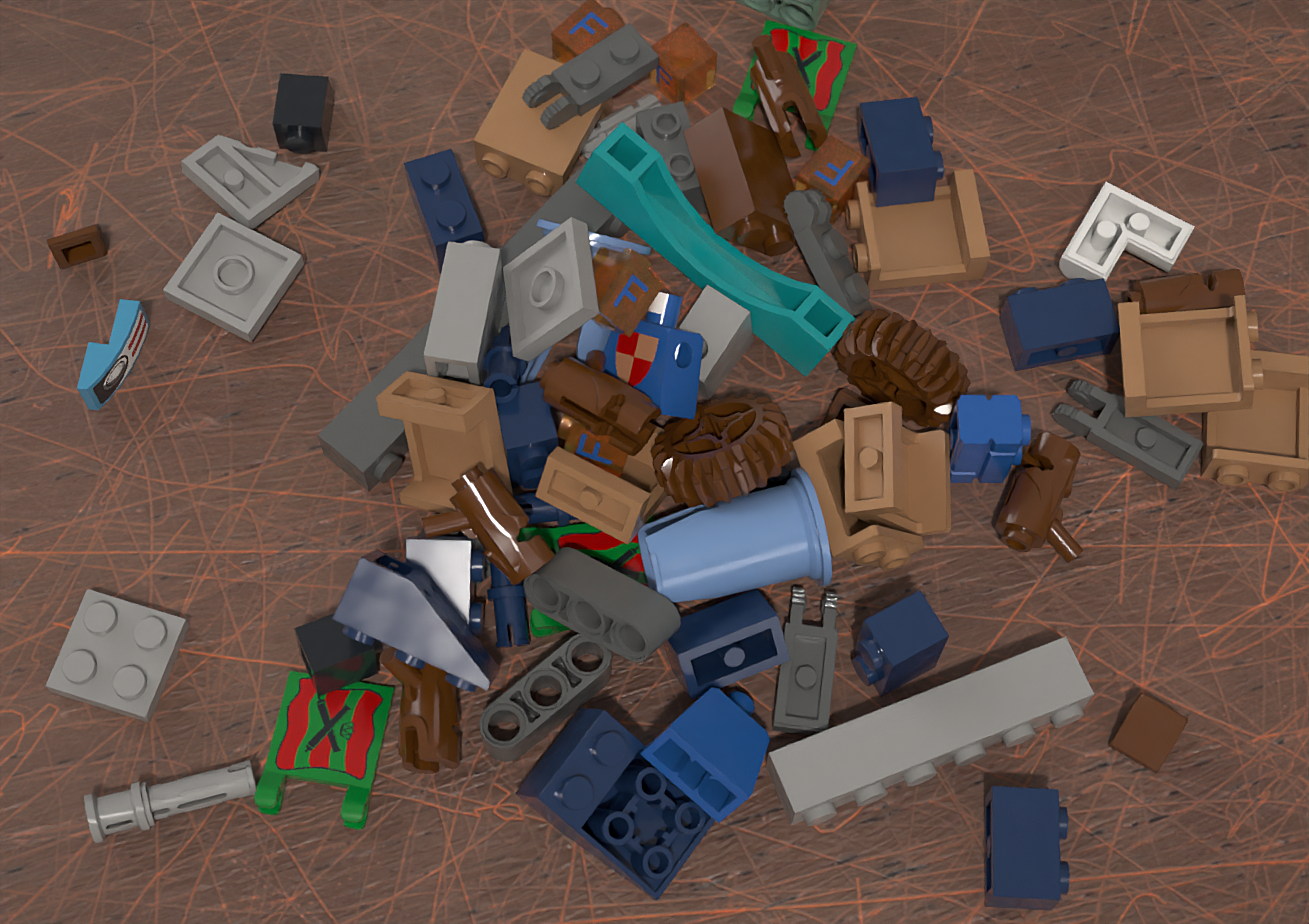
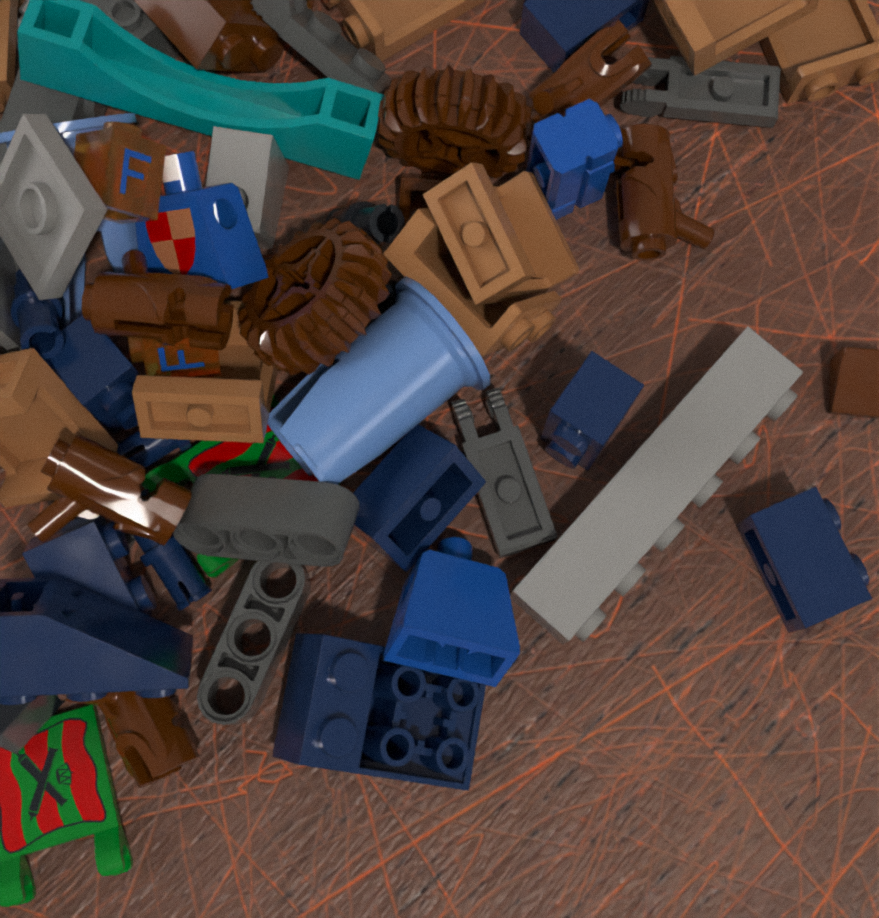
camera: 25 degrees left, 10 degrees up
(799, 413) = (379, 221): none -> black pin
(1030, 377) = (588, 76): none -> reddish brown piece

